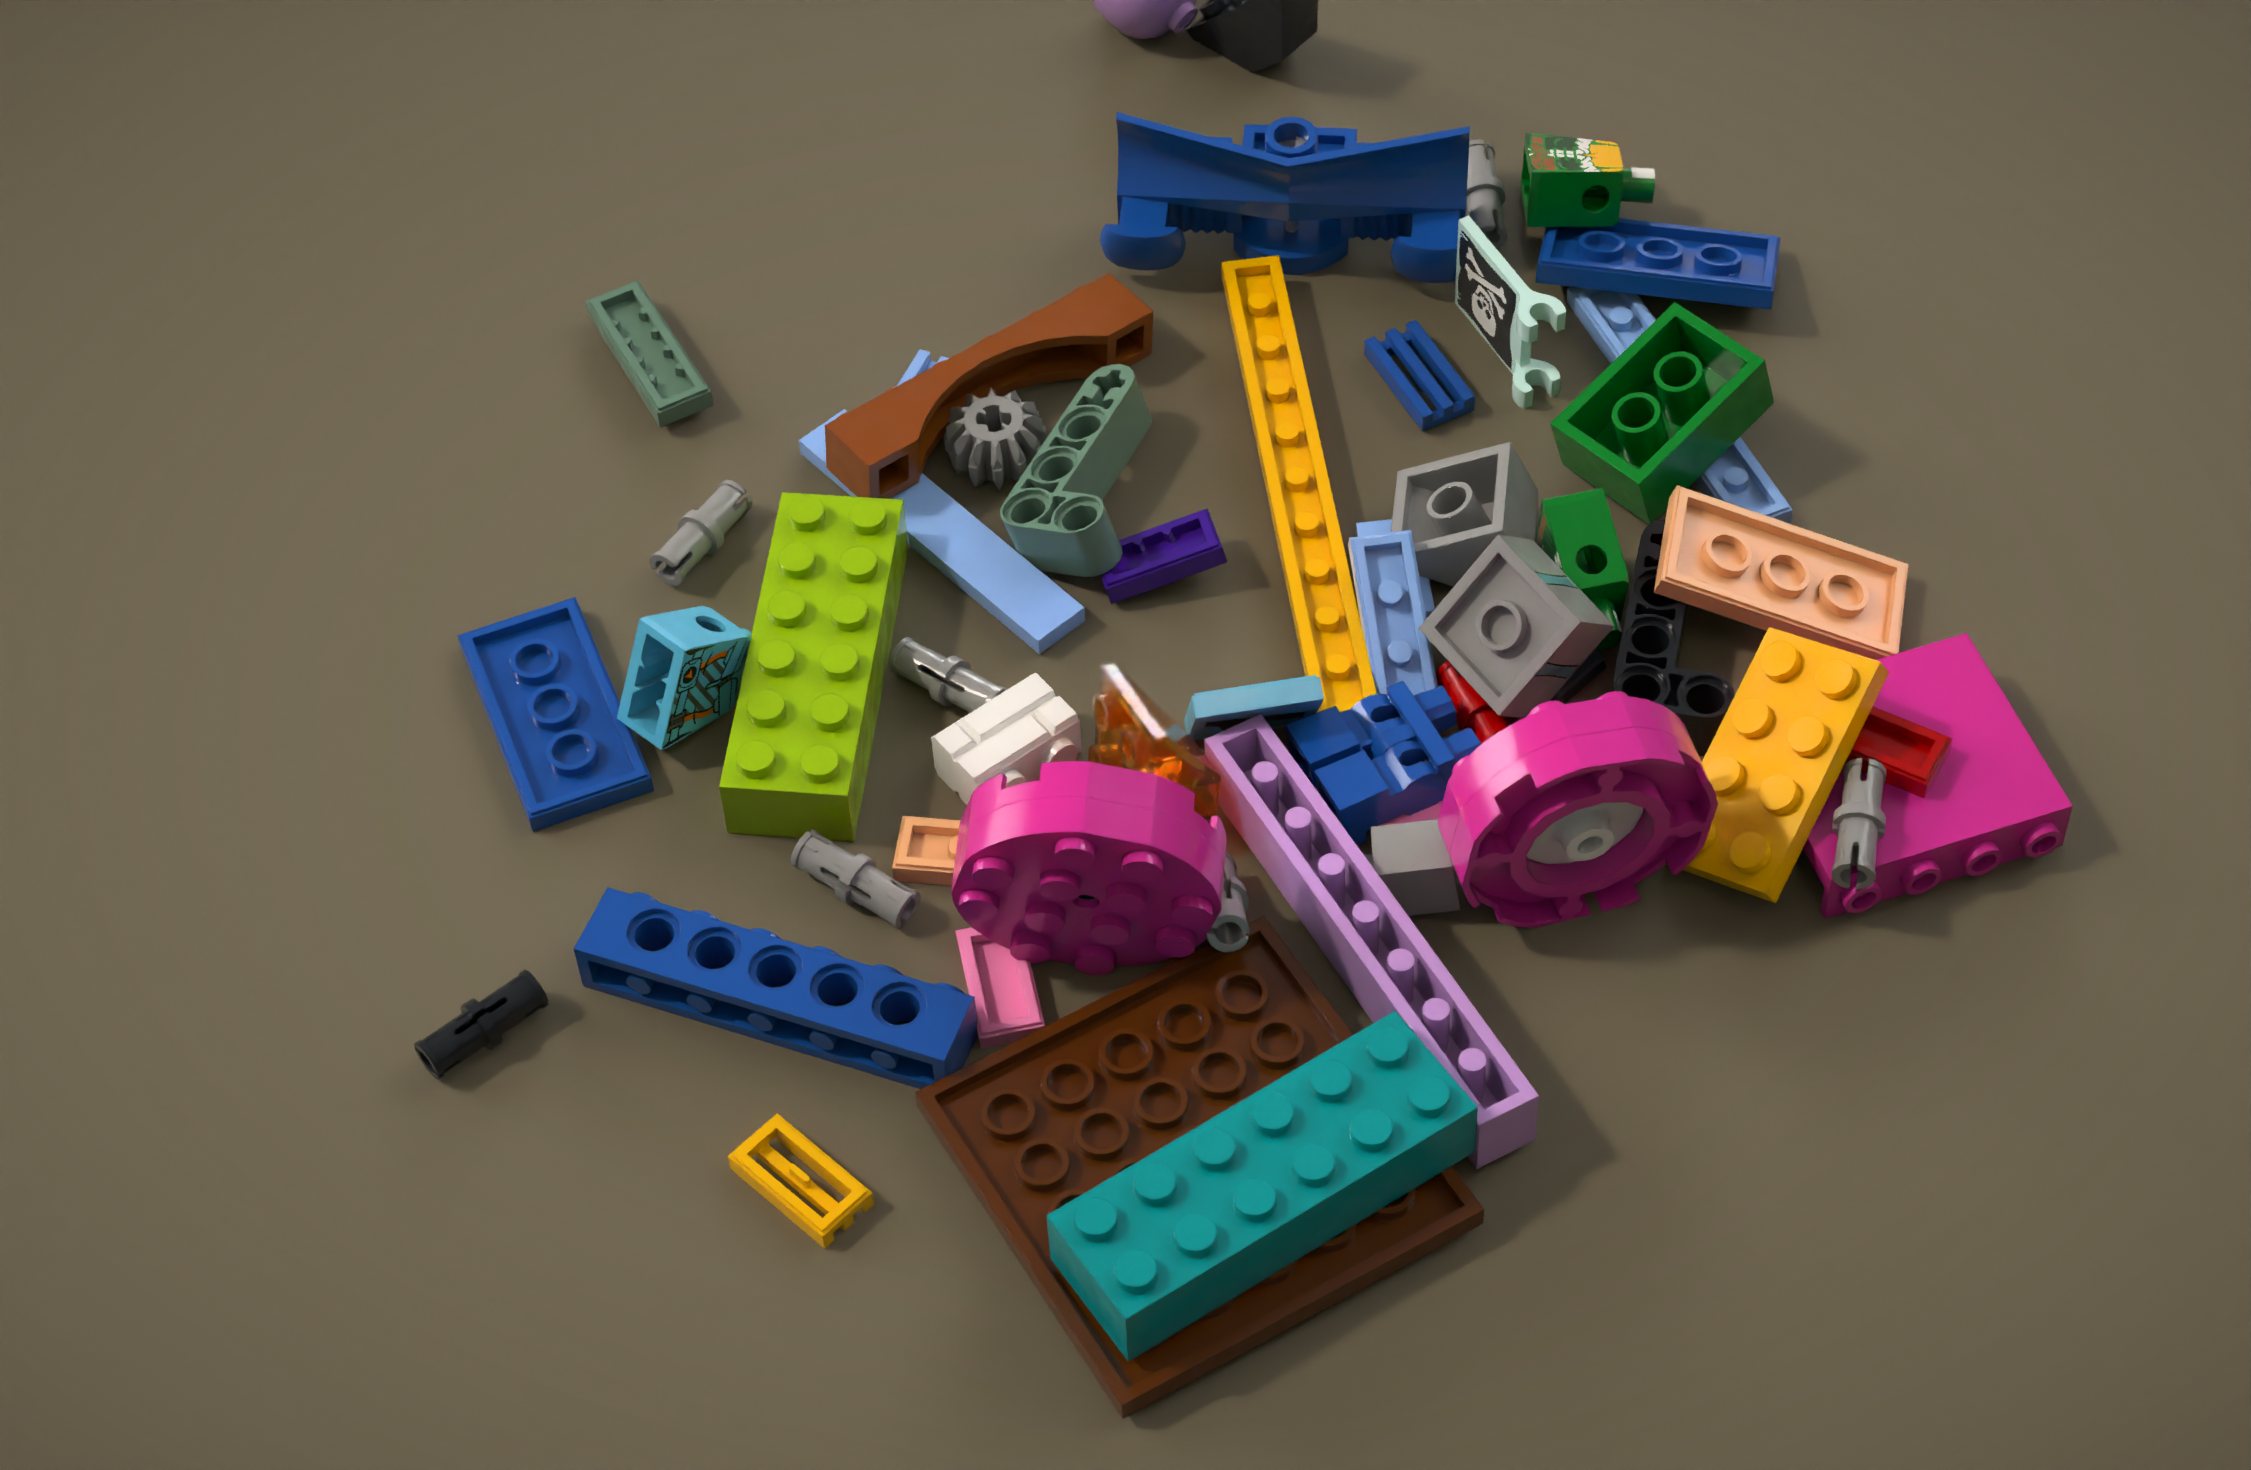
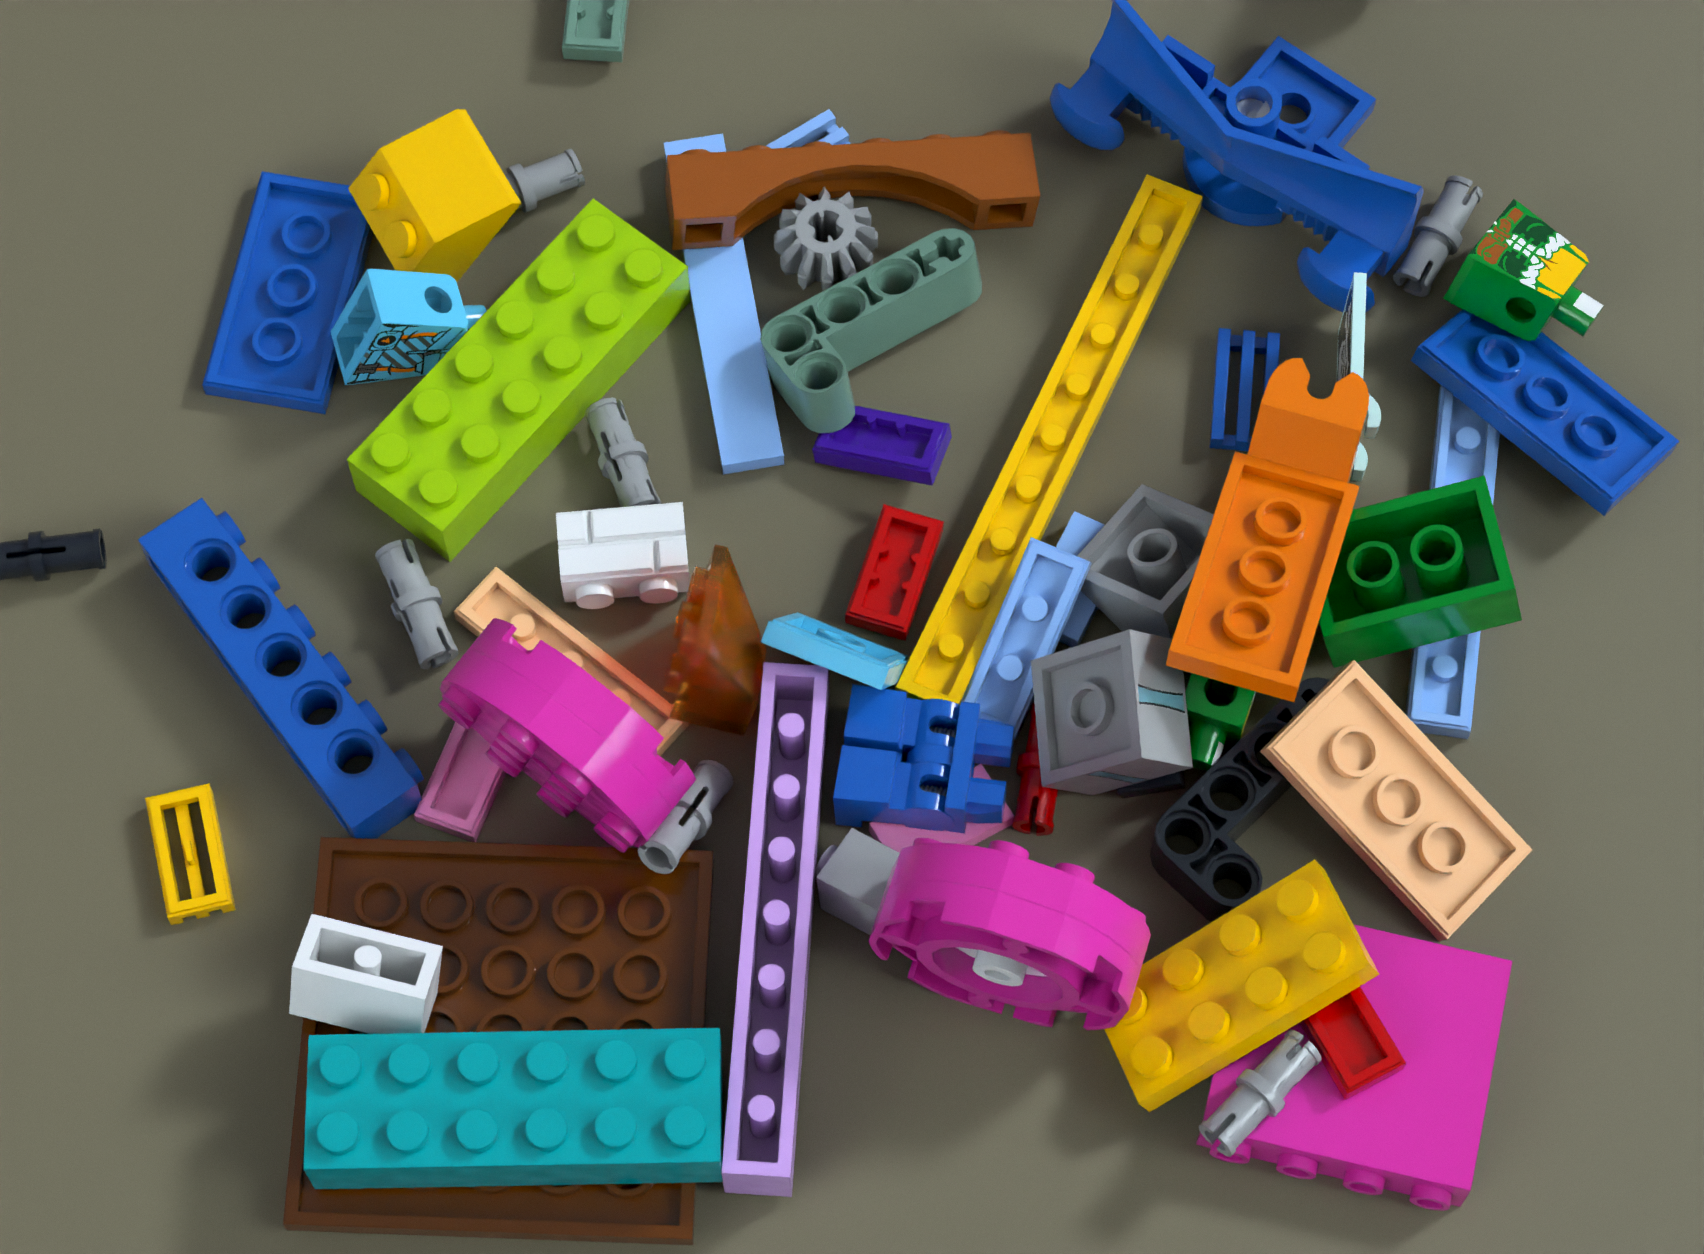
camera: 30 degrees right, 15 degrees up
(639, 557) = (435, 197): none -> yellow slope
(1052, 1153) = (364, 978): none -> white brick
(1243, 636) = (894, 572): none -> red plate
(1552, 420) = (1274, 538): none -> orange hinge

